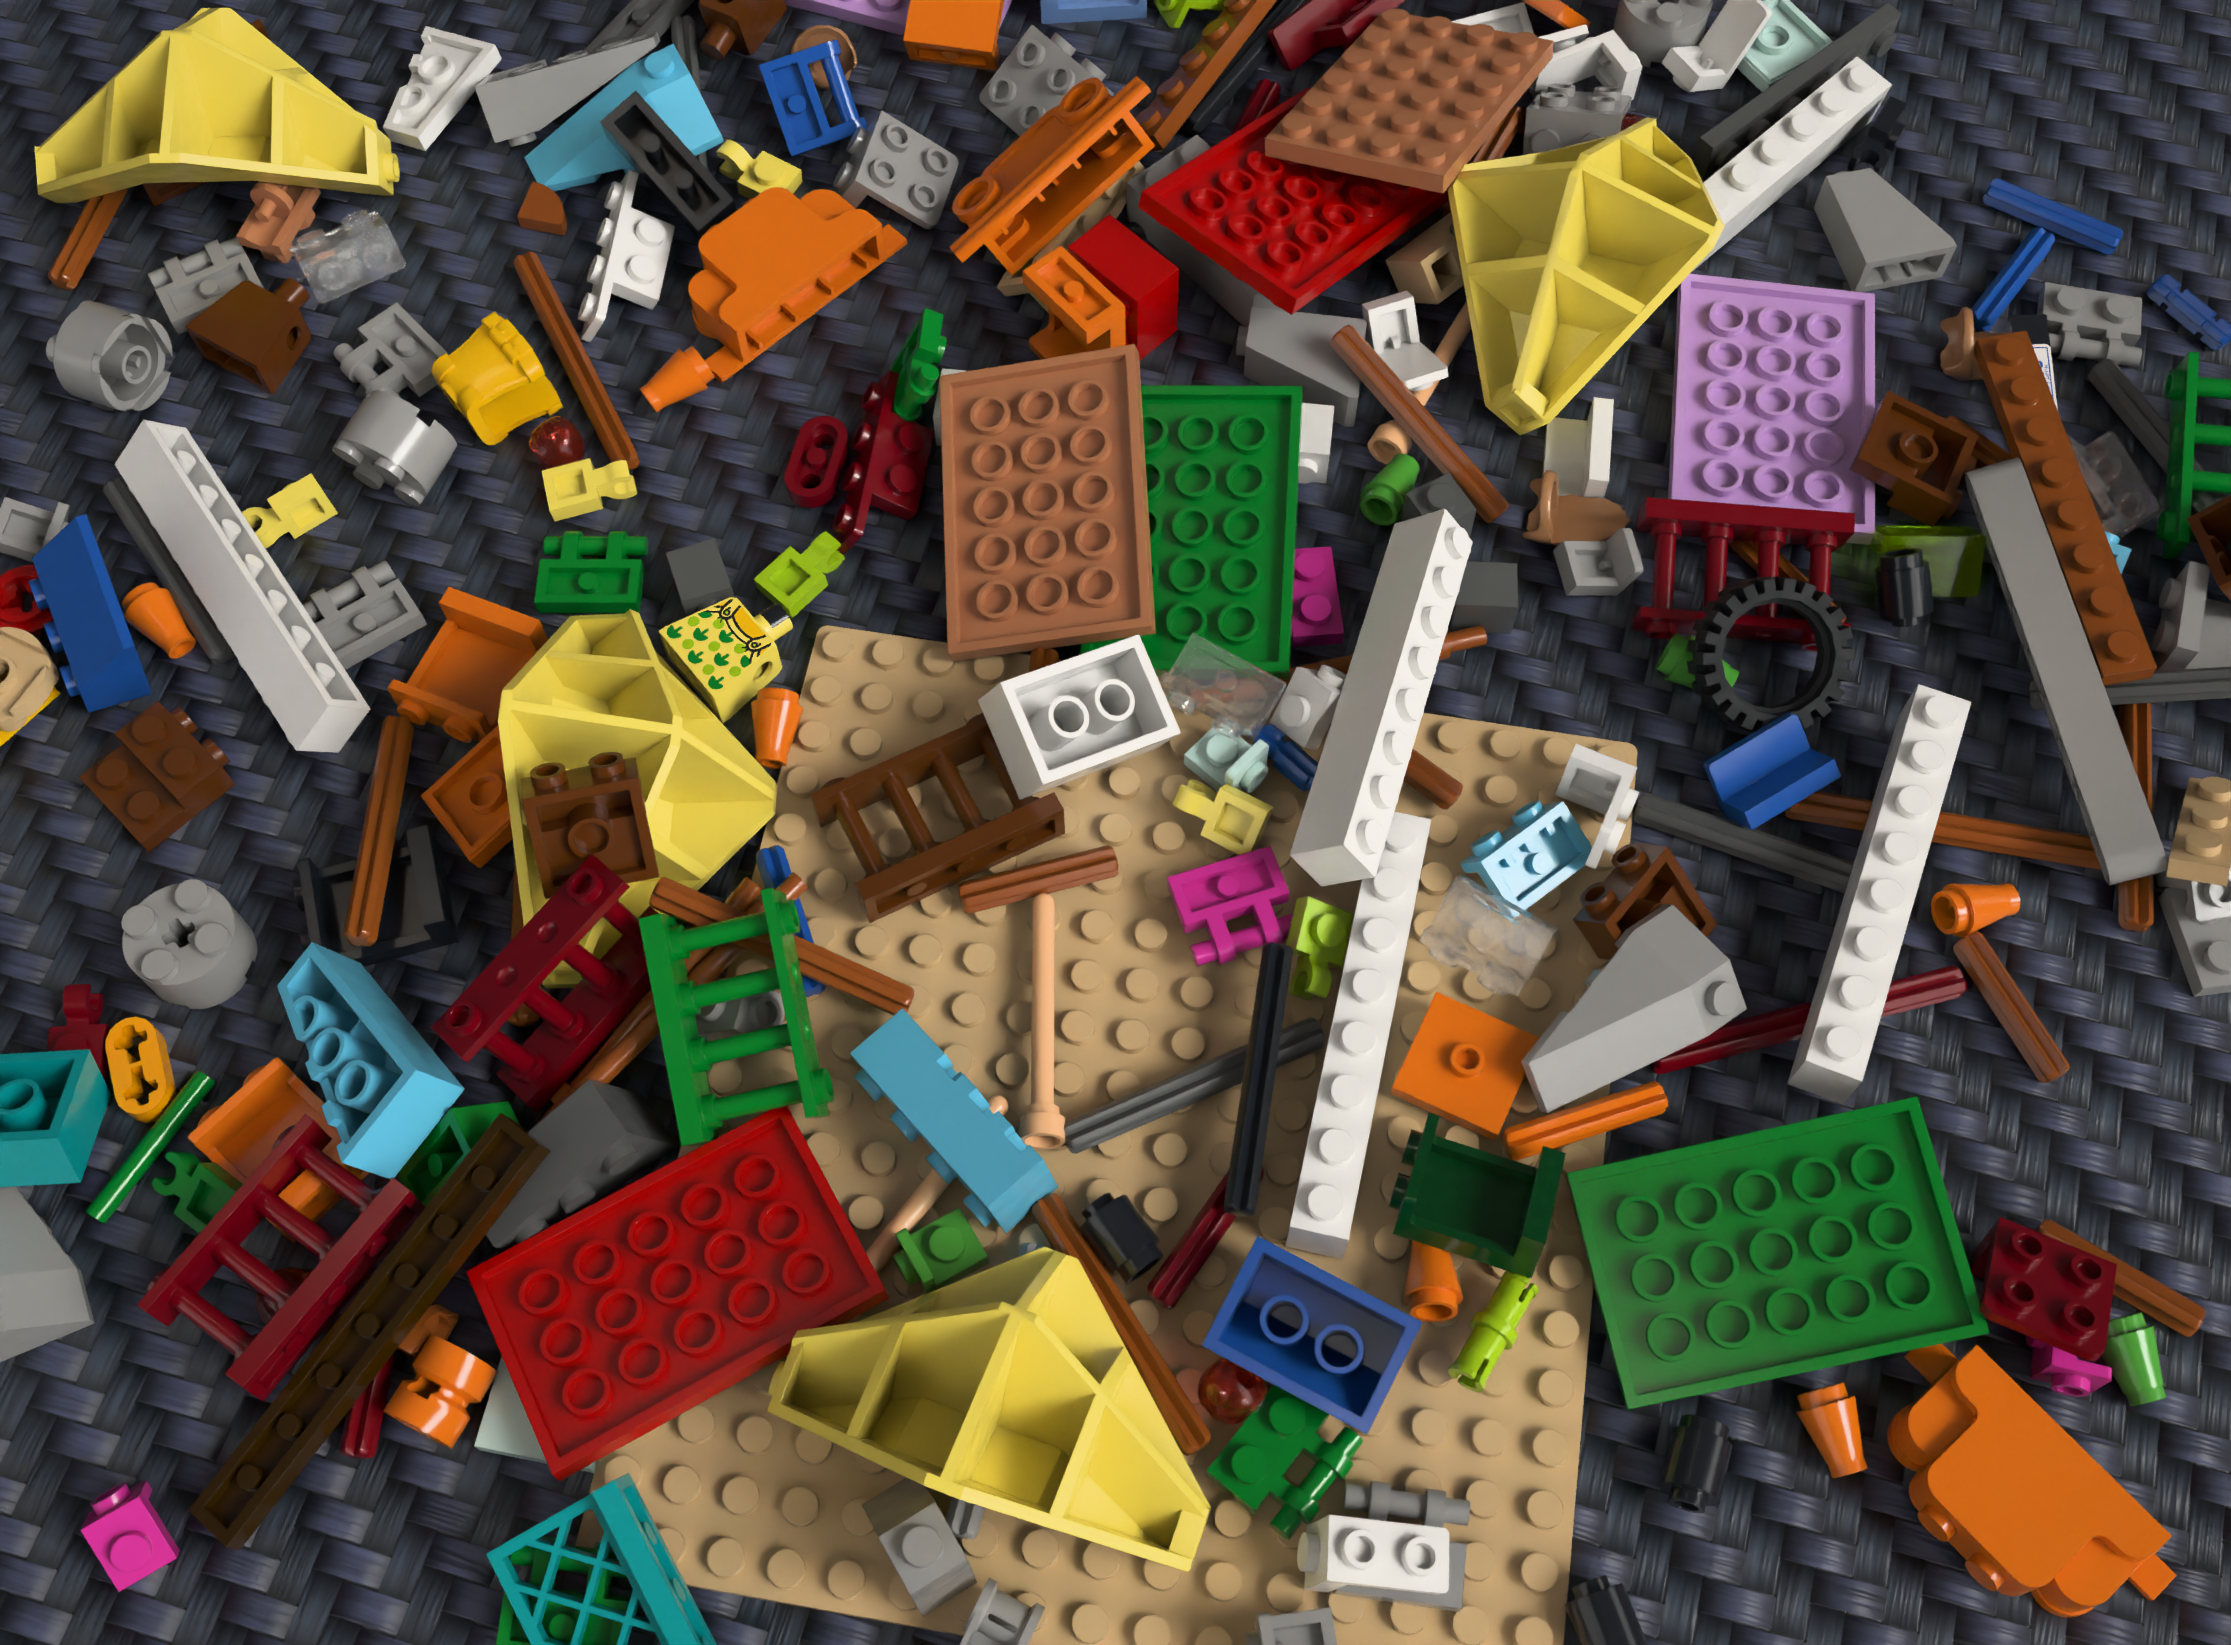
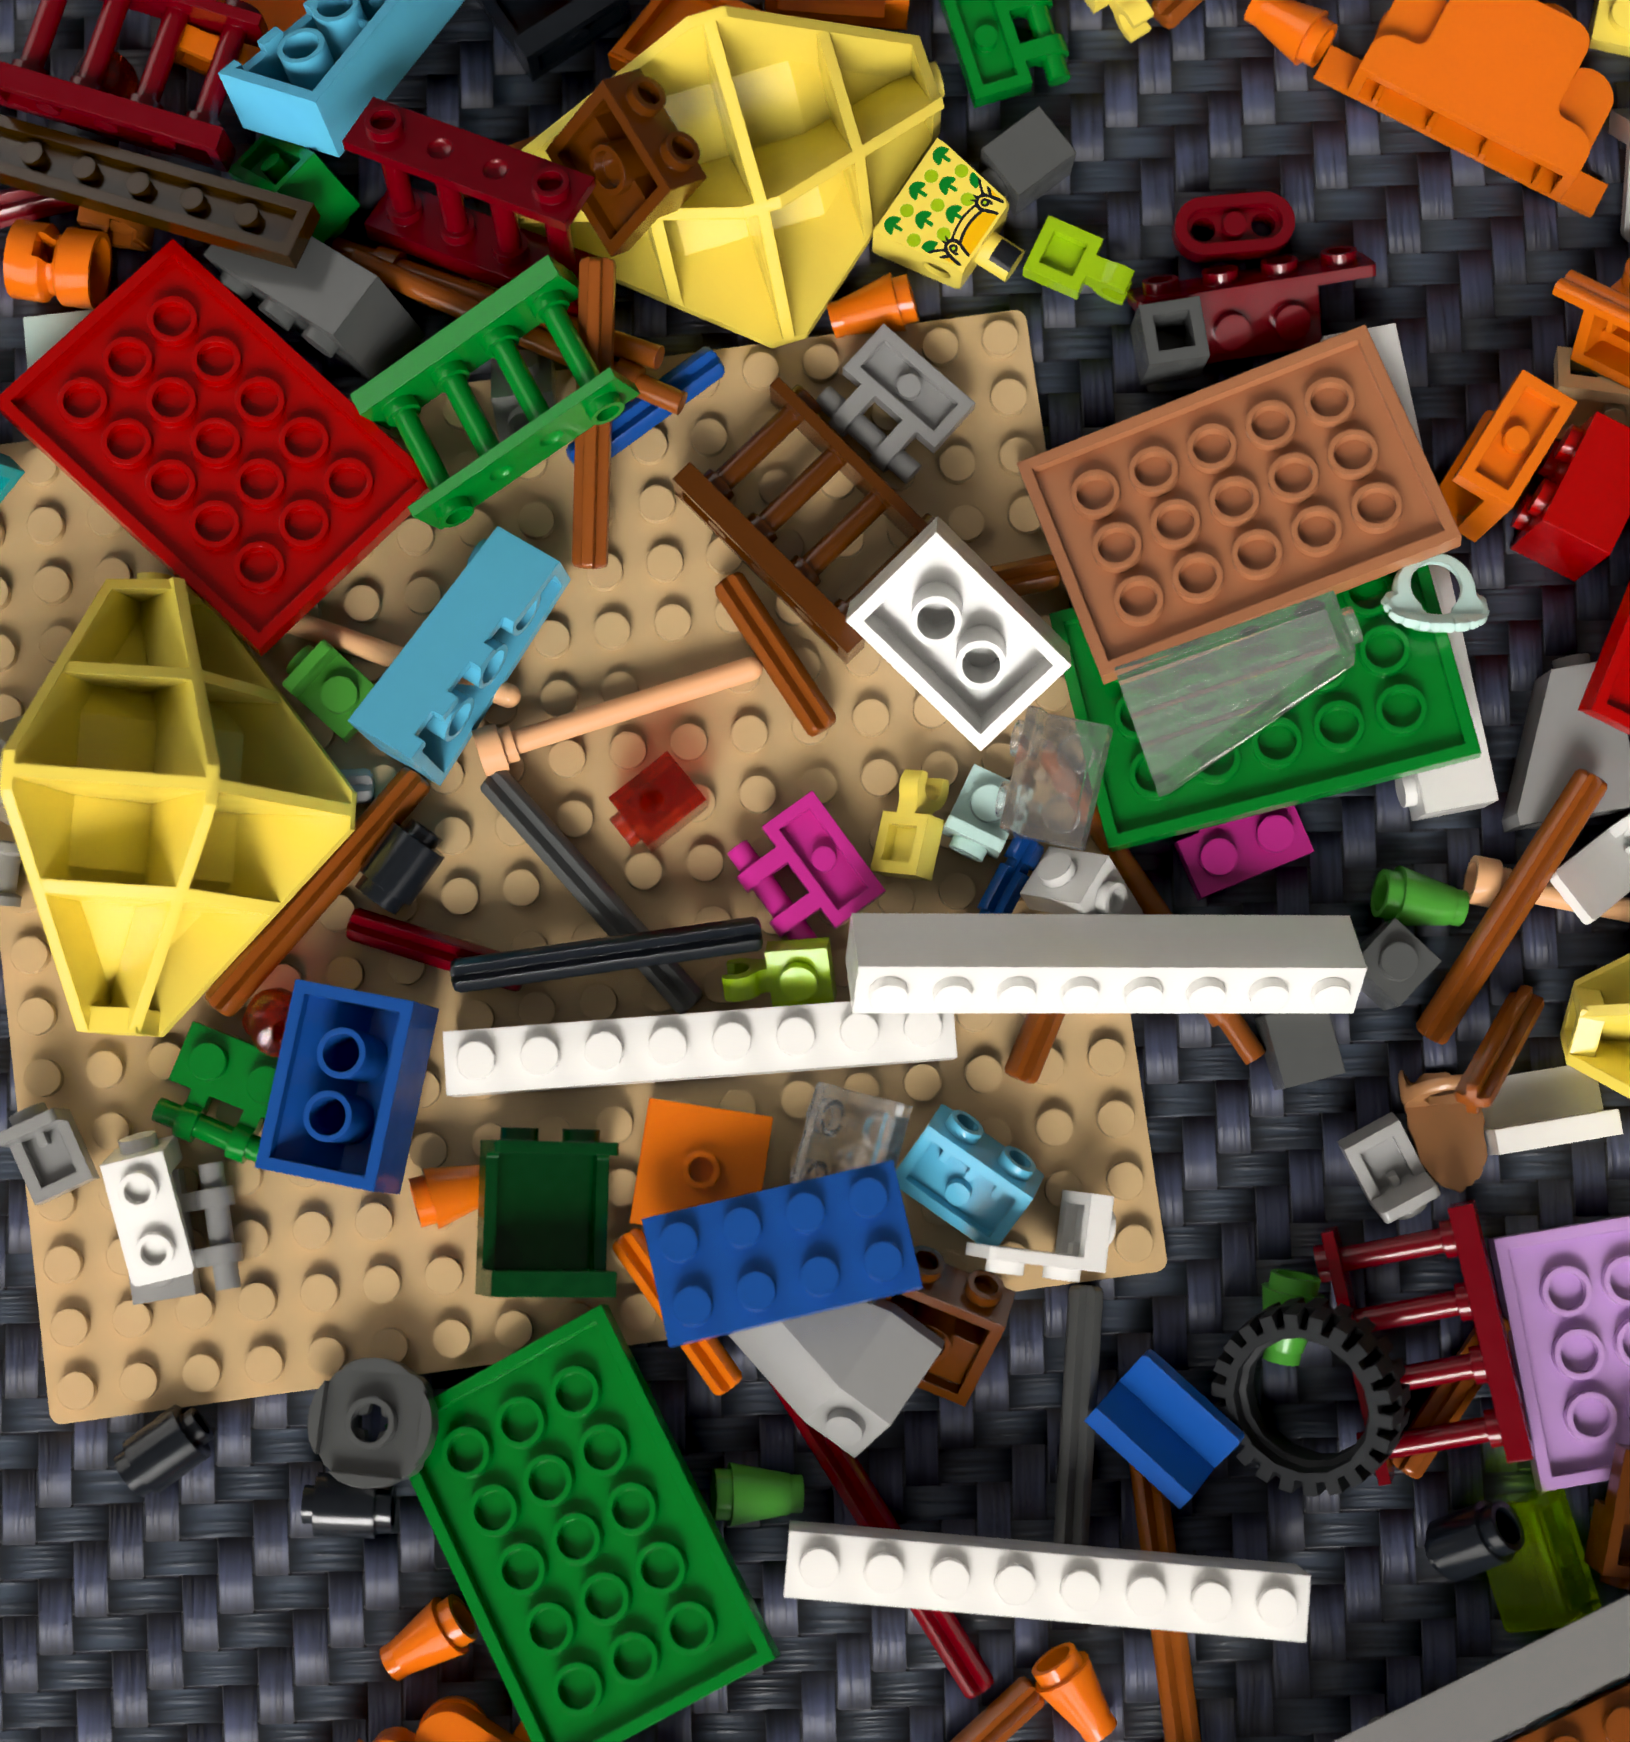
camera: 70 degrees right, 20 degrees up
(856, 714) = (908, 391): none -> light grey plate
(892, 521) = (1169, 340): none -> dark grey brick
(915, 368) = (1395, 288): green plate -> none
(1137, 1003) = (656, 804): none -> clear red brick
(1192, 364) = (1466, 614): none -> light aqua piece
(1193, 550) = (1230, 684): none -> clear slope
(1493, 1331) = (415, 1268): lime pin -> none
(1528, 456) = (1499, 1049): none -> dark orange axle
(1564, 1000) = (781, 1254): none -> blue plate
(1660, 1393) = (345, 1447): none -> dark grey plate
(1757, 1102) = (754, 1494): none -> bright green cone

